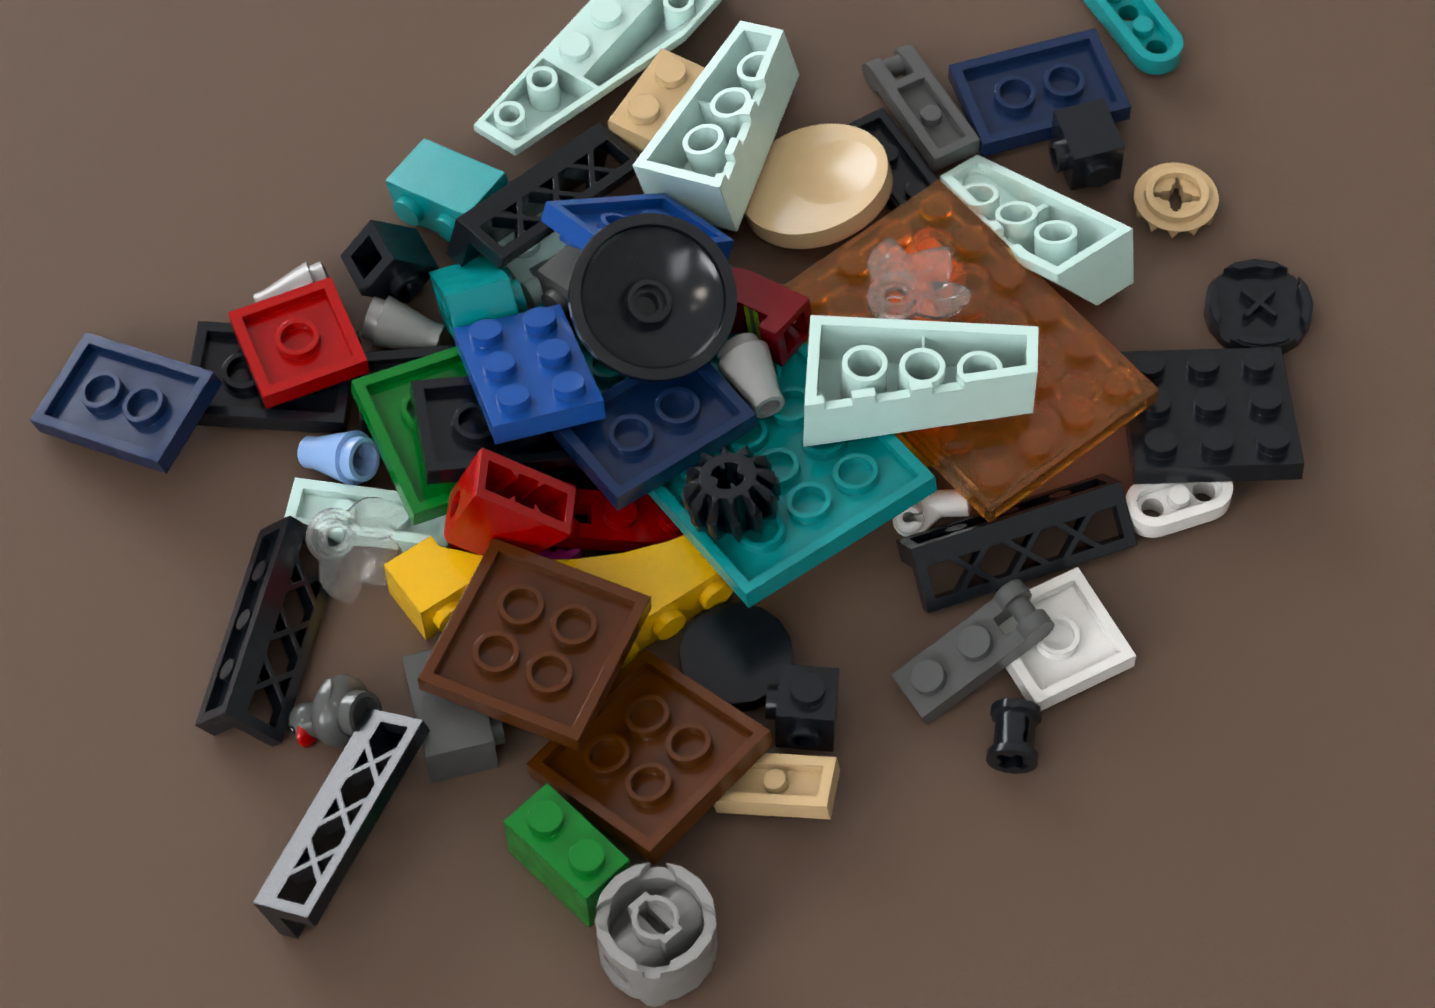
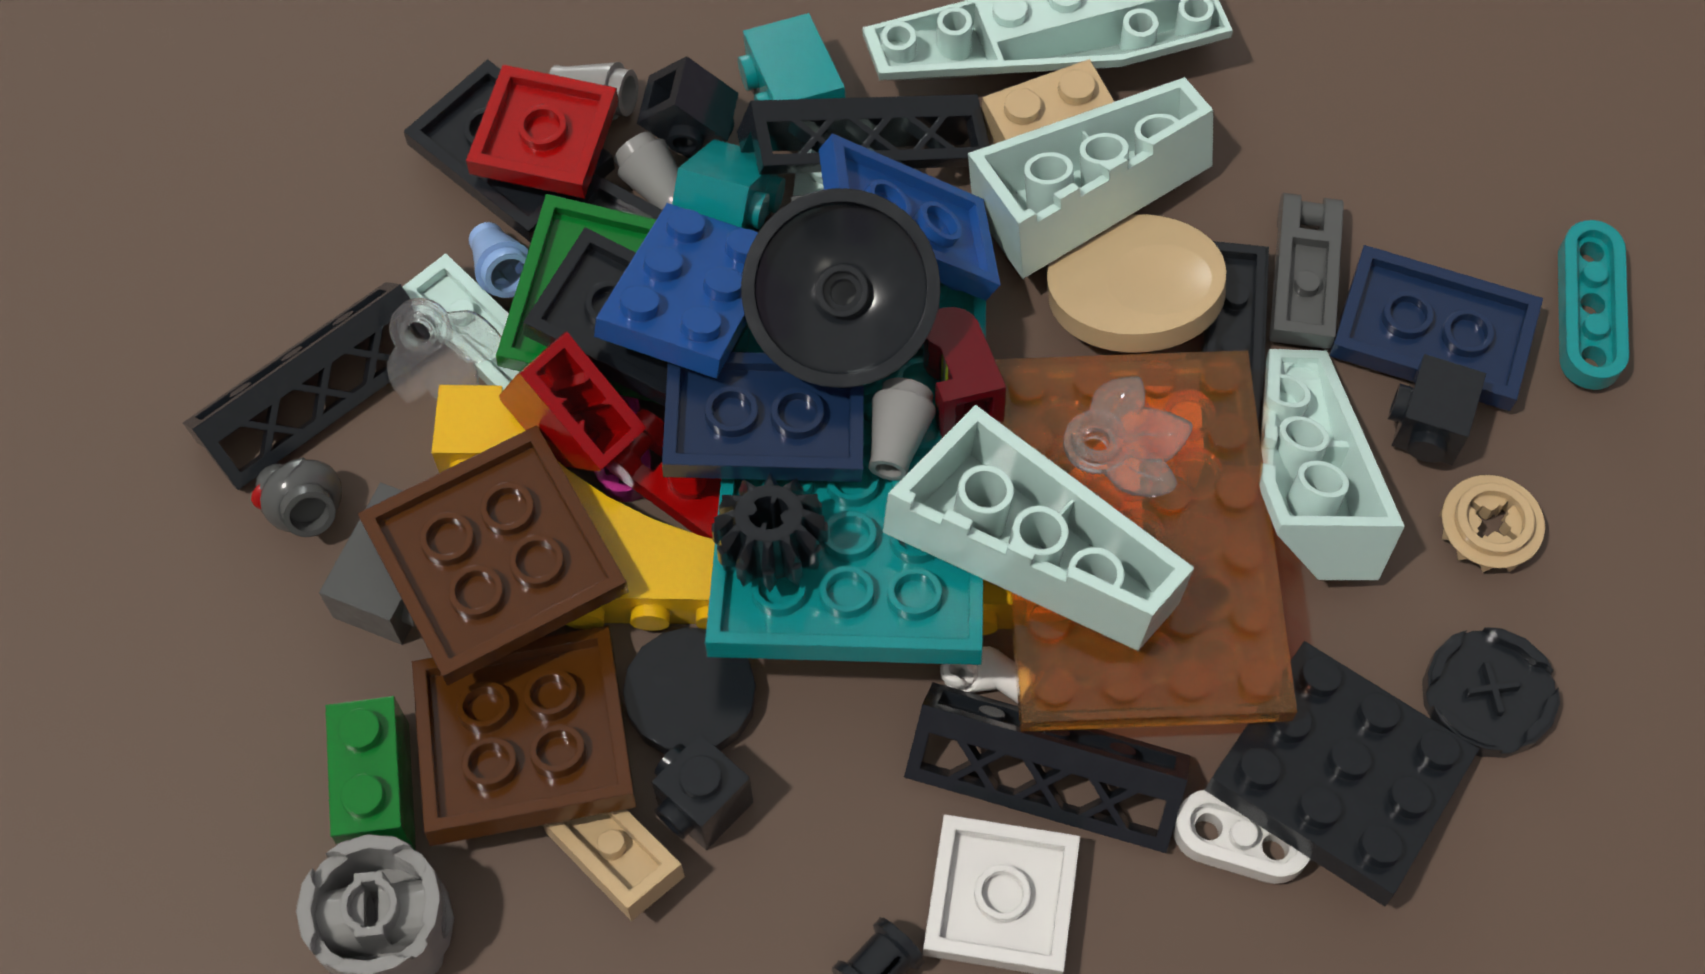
camera: 35 degrees right, 5 degrees up
(126, 402) = (364, 93): dark blue plate -> none
(339, 820) = (201, 598): fence -> none
(973, 652) = (903, 850): dark grey plate -> none

